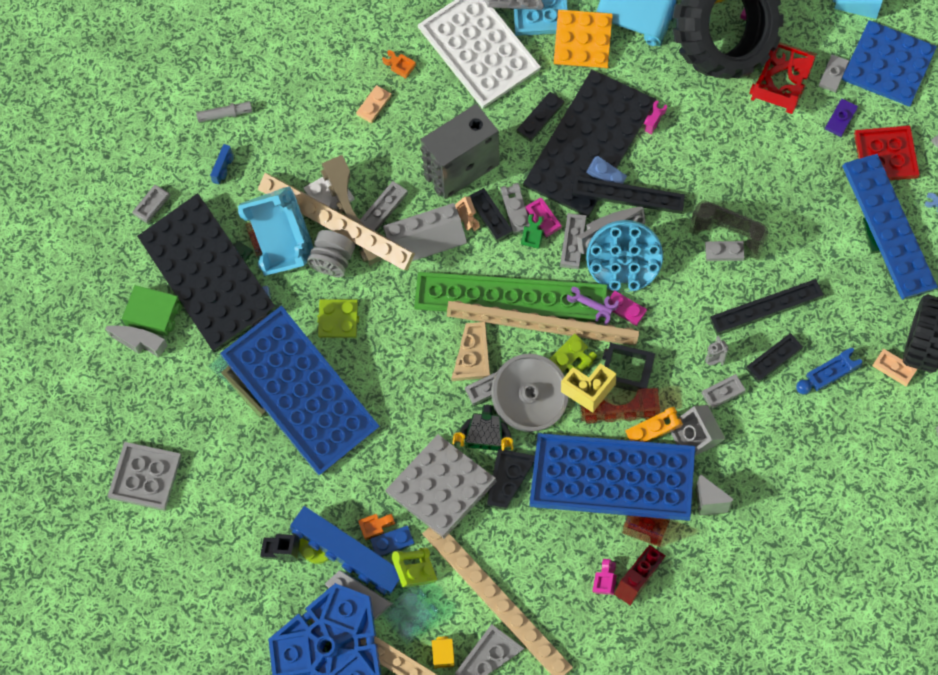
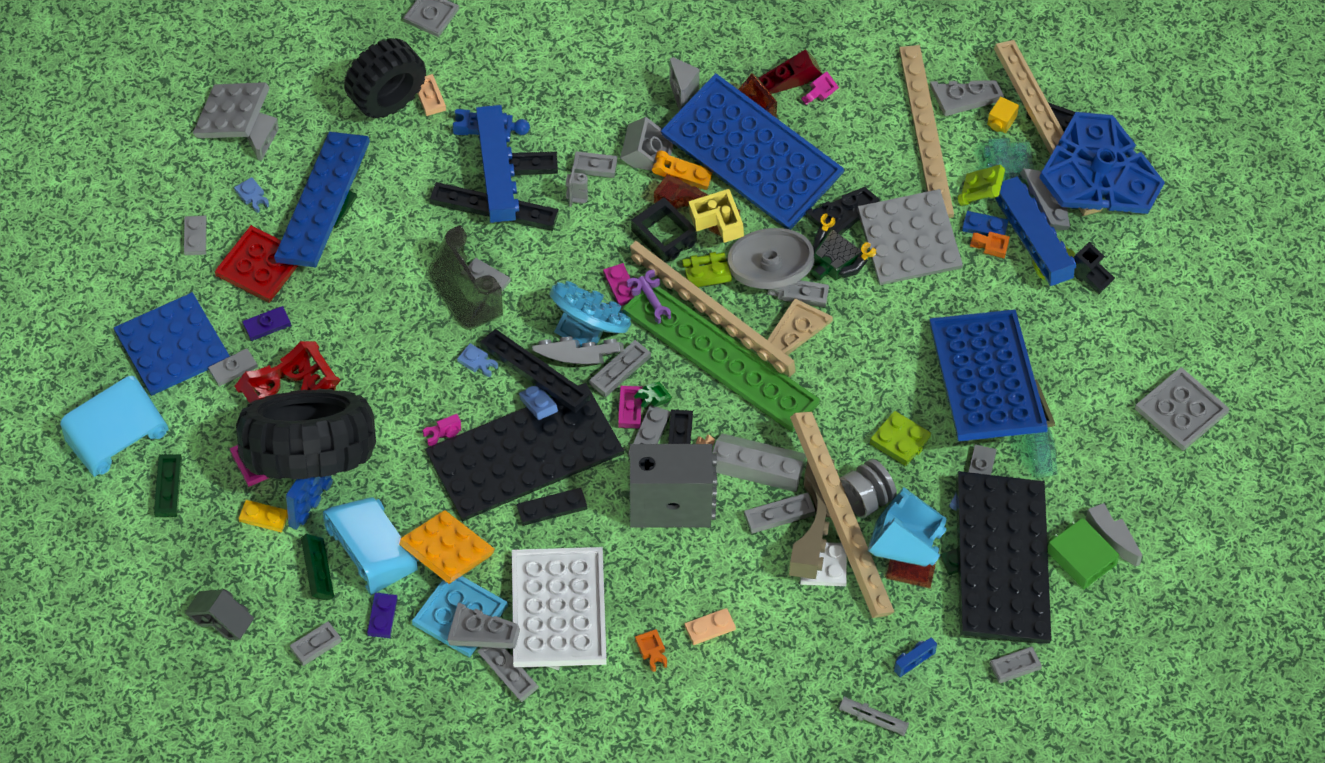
camera: 150 degrees left, 10 degrees down
(678, 184) = (475, 358): none -> medium blue plate
(791, 331) = (496, 163): none -> blue brick

